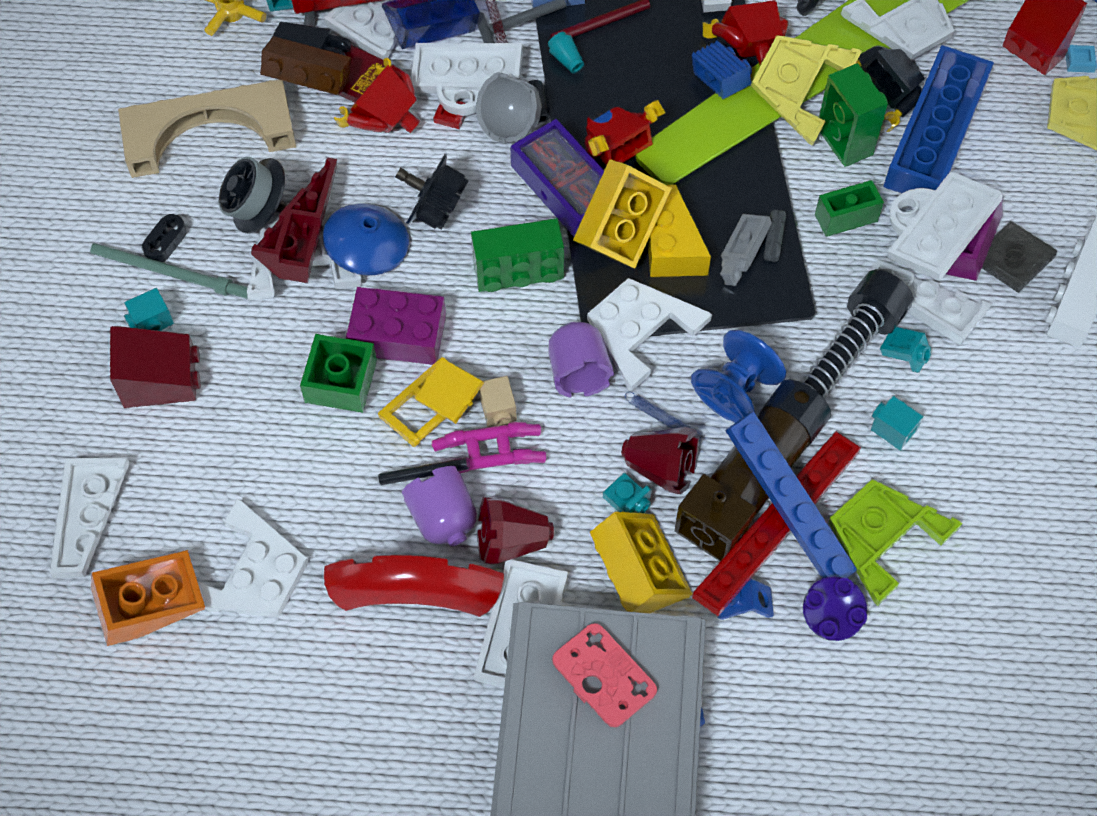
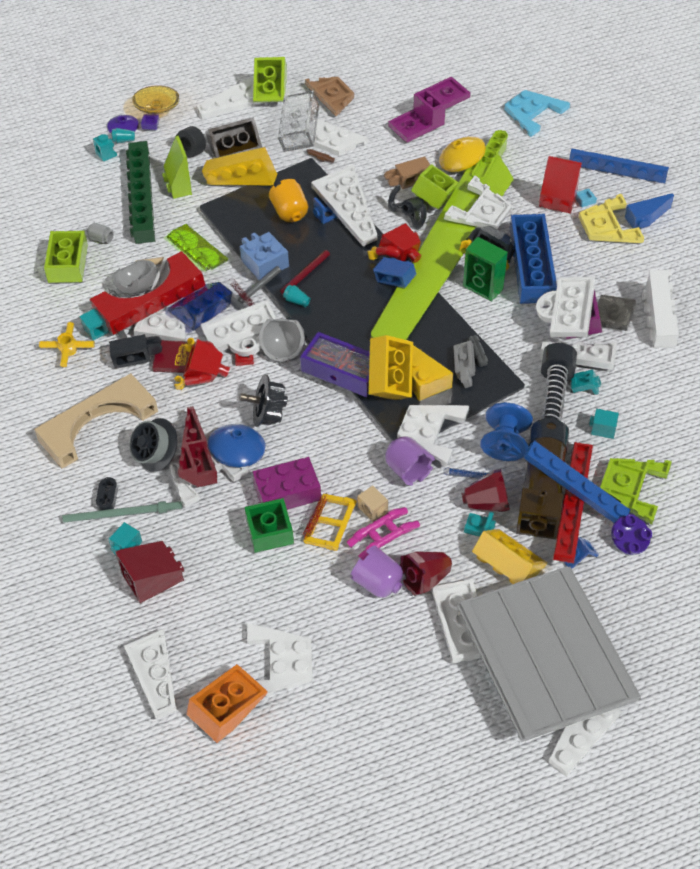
camera: 25 degrees left, 10 degrees down
(305, 65) = (142, 359): reddish brown brick -> none
(412, 581) = (384, 621): red brick -> none
(414, 380) = (316, 511): none -> red piece
(421, 471) = (351, 560): black bar -> none
(449, 390) = (342, 508): yellow piece -> none
(518, 255) = (337, 417): green brick -> none
(610, 668) = (535, 613): coral axle -> none
(620, 133) = (358, 327): red torso -> none
(788, 75) = (435, 261): light yellow wing -> none
(848, 208) = (510, 320): green brick -> none

